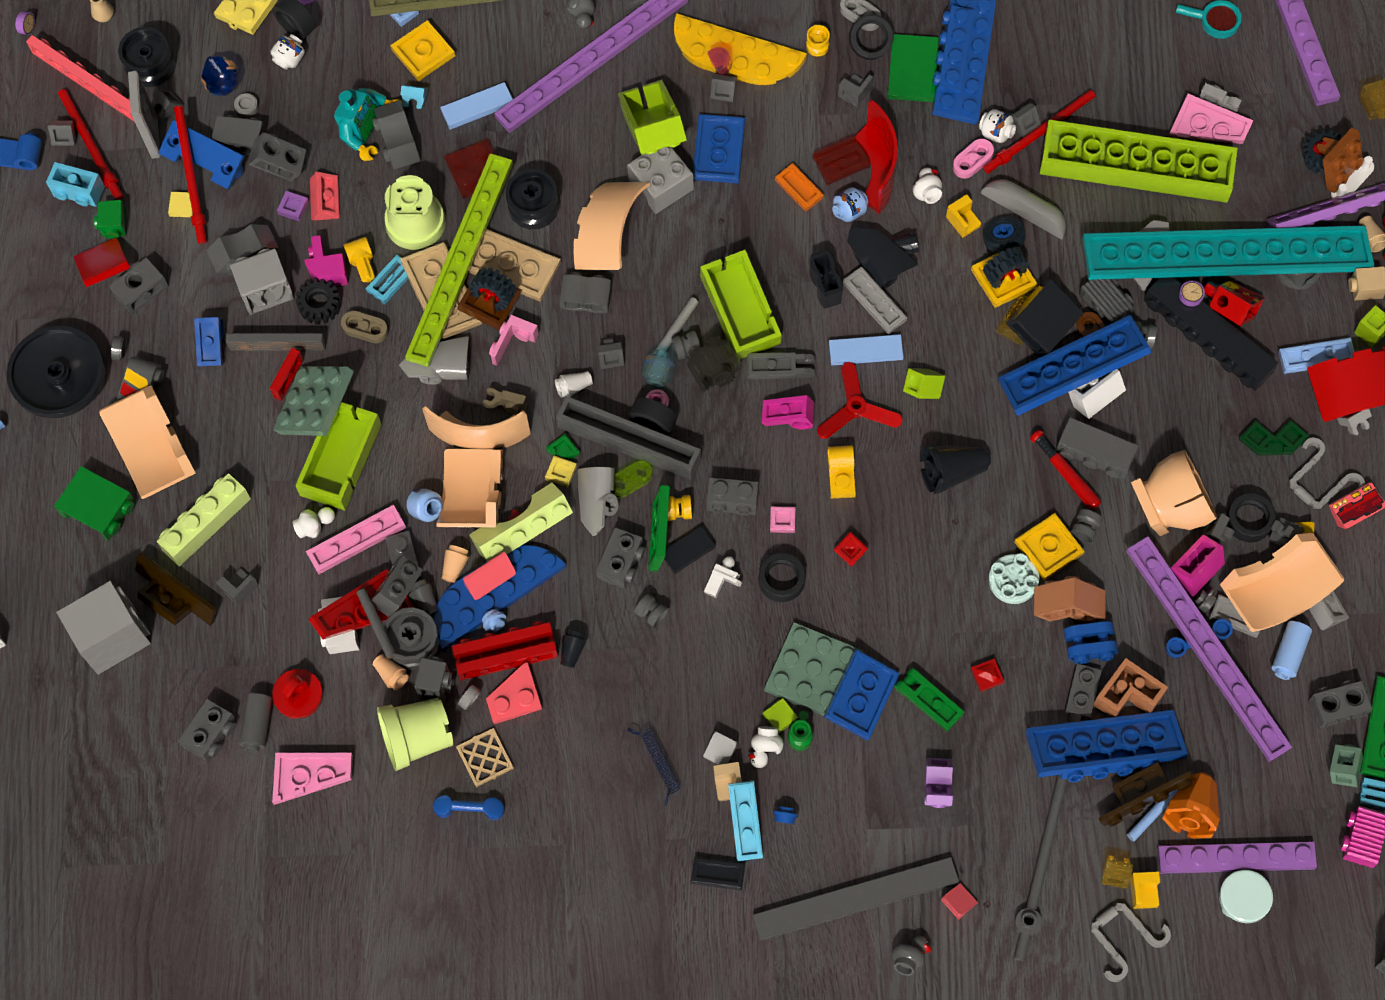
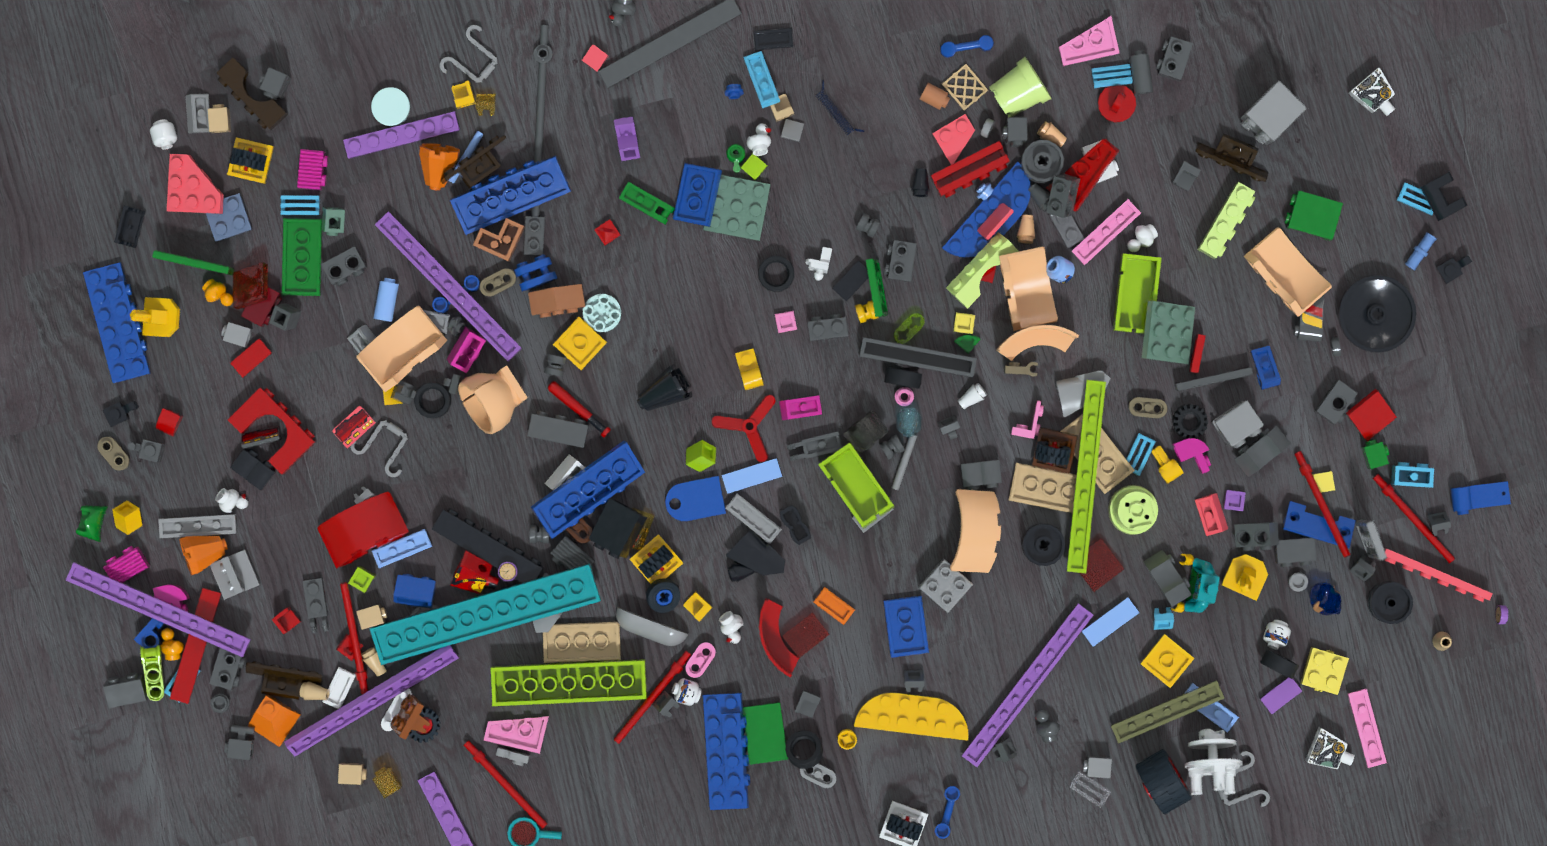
camera: 165 degrees right, 20 degrees up
(272, 726) = (1111, 73): none -> medium azure tile
(304, 119) = (1246, 576): none -> yellow piece
(376, 623) = (1068, 160): dark grey bar -> none
(526, 751) = (934, 96): none -> nougat brick
(595, 497) = (932, 304): light grey panel -> none
(656, 126) = (963, 628): lime piece -> none
(720, 60) = (921, 698): clear pink brick -> none
(850, 204) = (790, 596): light blue head -> none
(850, 549) = (729, 308): red tile -> none
(939, 337) = (697, 498): none -> blue tile
(1111, 206) = (582, 642): none -> tan tile
(1140, 642) = (498, 283): none -> dark tan plate
(1259, 106) = (480, 758): none -> red bar
(1265, 443) = (432, 466): dark green tile -> none
(1310, 299) = (414, 591): none -> blue piece

